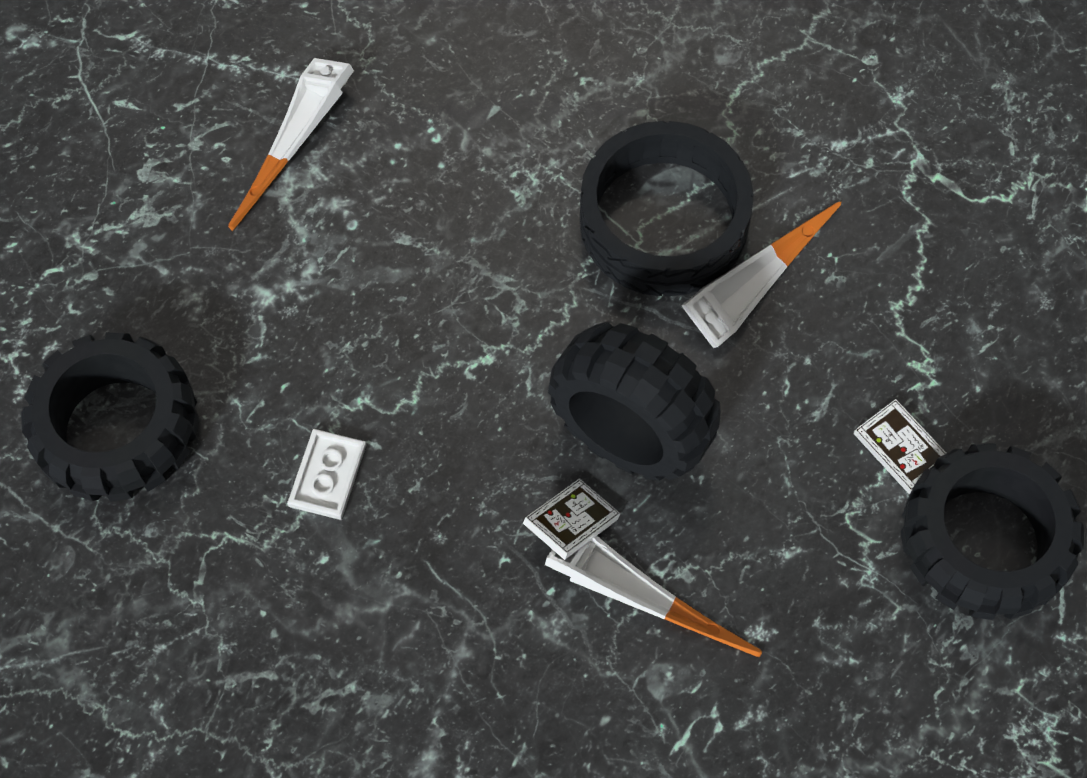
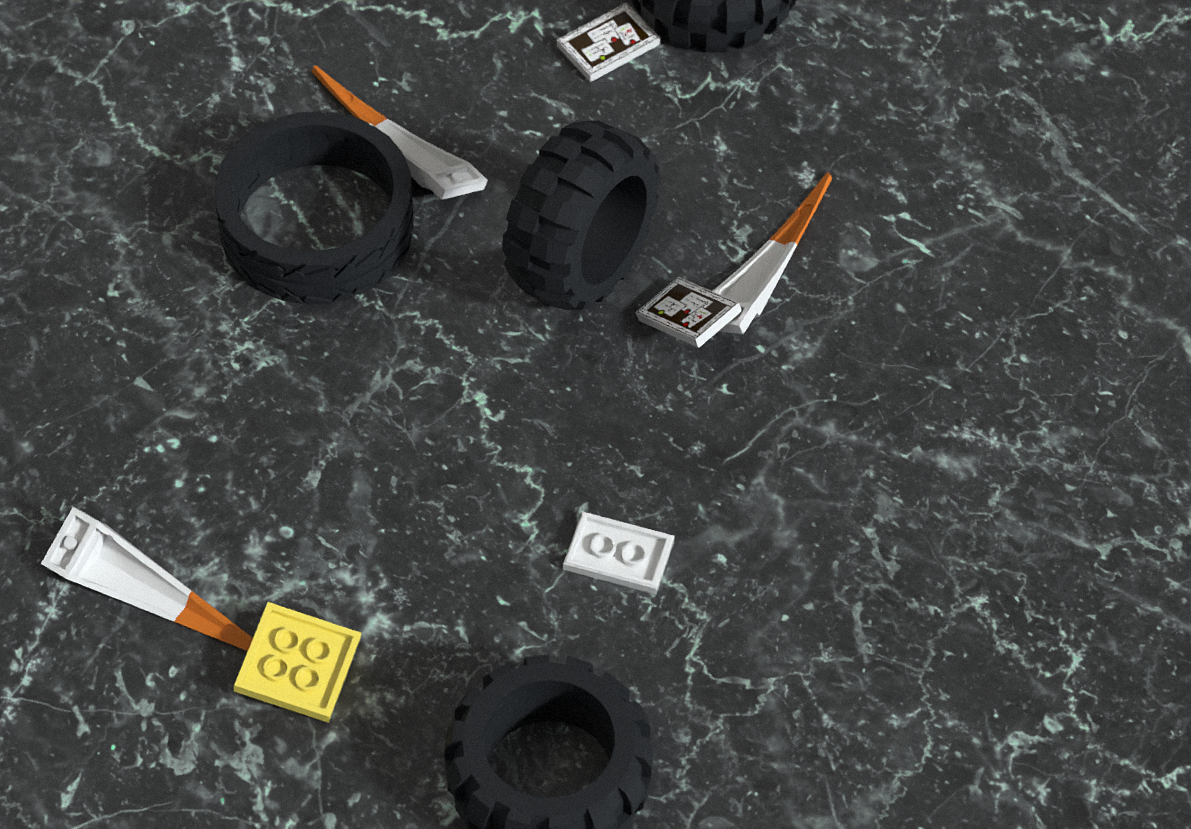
camera: 90 degrees left, 10 degrees down
(220, 237) = (297, 662): none -> light yellow plate

